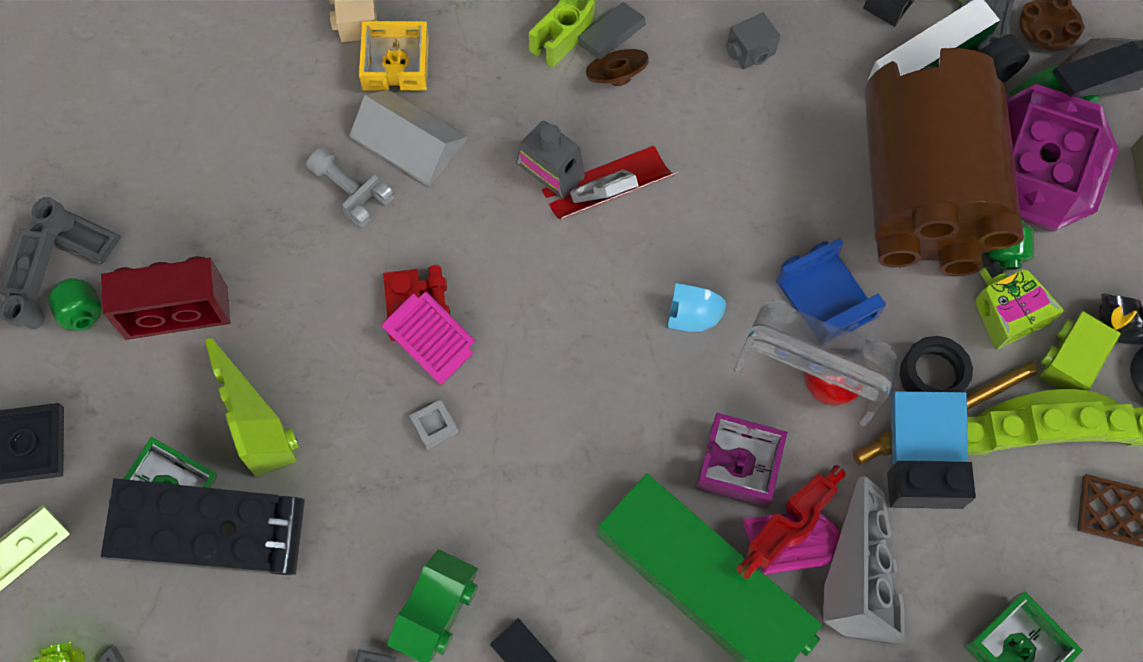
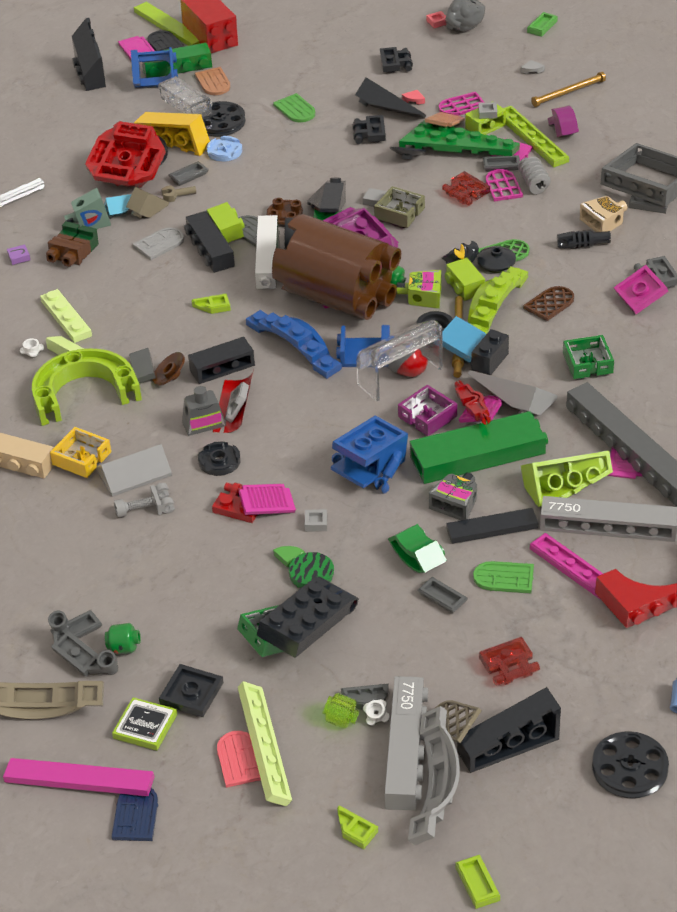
camera: 55 degrees left, 25 degrees down
(165, 298) = (156, 590): dark red brick -> none
(255, 428) = (256, 585): lime wedge -> none
(328, 474) = (310, 566): none -> green tile
(344, 426) = (287, 554): none -> bright green tile
(493, 245) = (222, 466): none -> black tile
(582, 602) = (454, 496): none -> dark grey torso
(585, 430) = (369, 453): none -> blue torso
(678, 120) = (221, 360): none -> black brick
(695, 309) = (331, 398): medium azure brick -> none
(752, 41) = (200, 314): dark grey brick -> none
(785, 195) = (301, 336): none -> blue piece
(796, 45) = (212, 304): none -> lime tile

